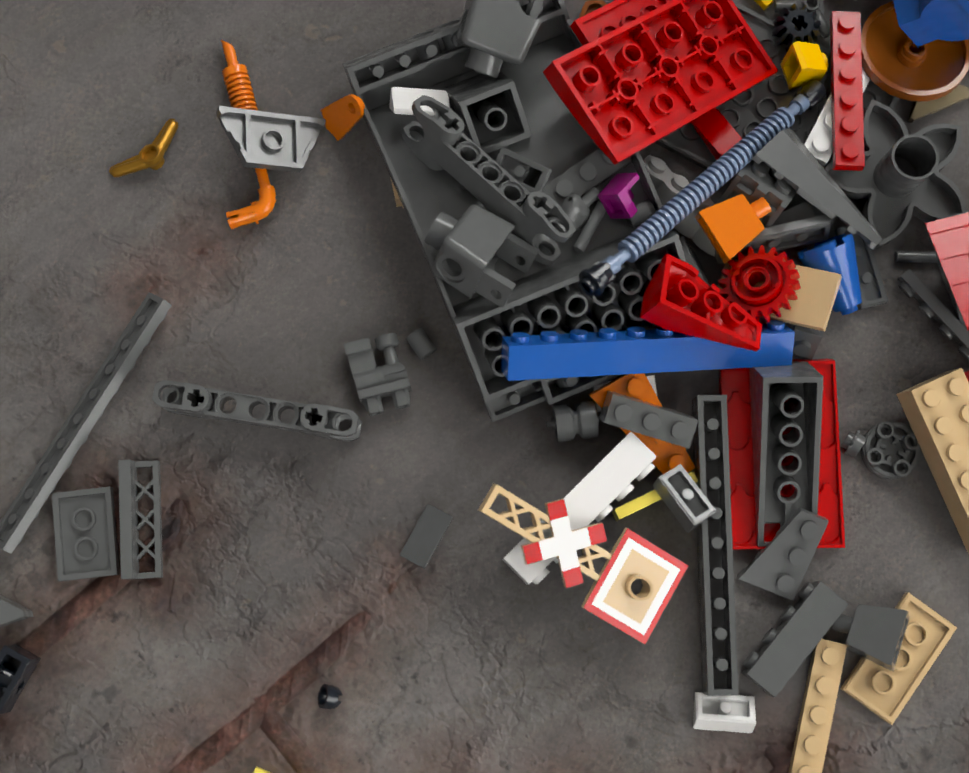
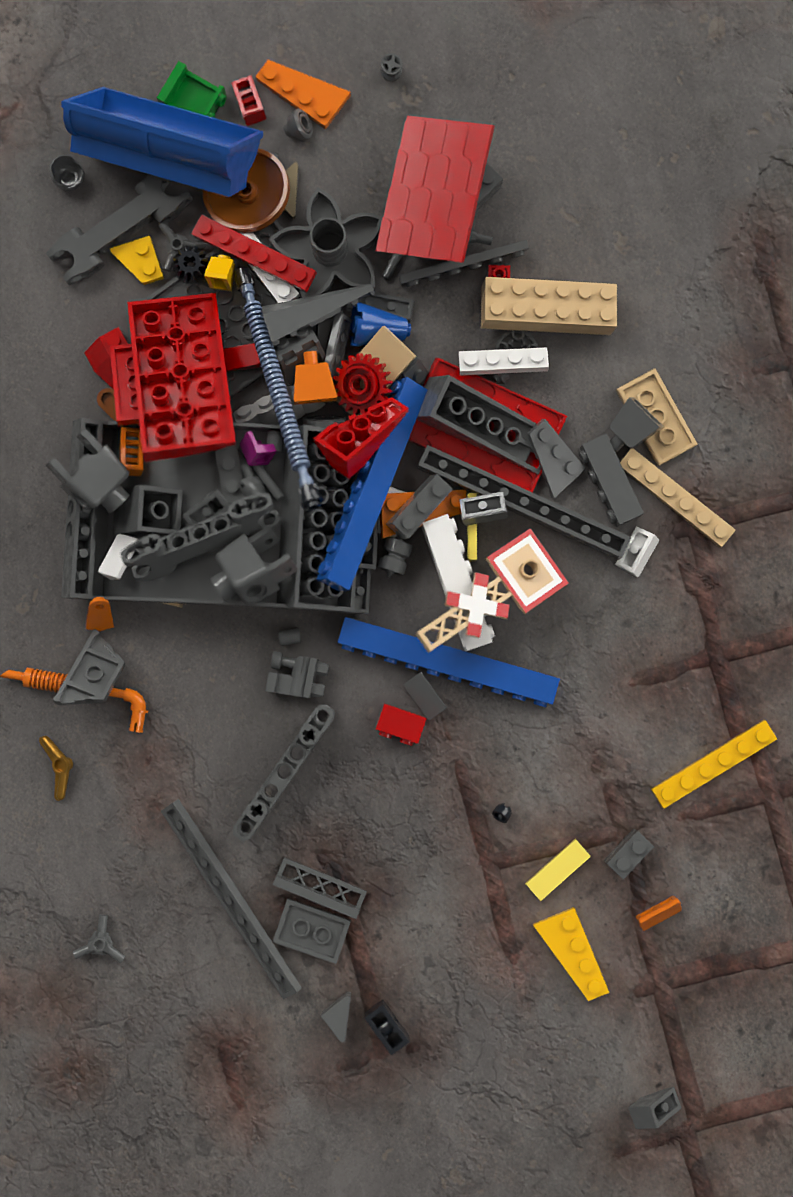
camera: 60 degrees left, 5 degrees up
(379, 522) = (400, 724): none -> red brick
(481, 546) = (449, 661): none -> blue brick
(531, 68) = (137, 467): none -> orange slope
(871, 439) = (503, 361): none -> white plate

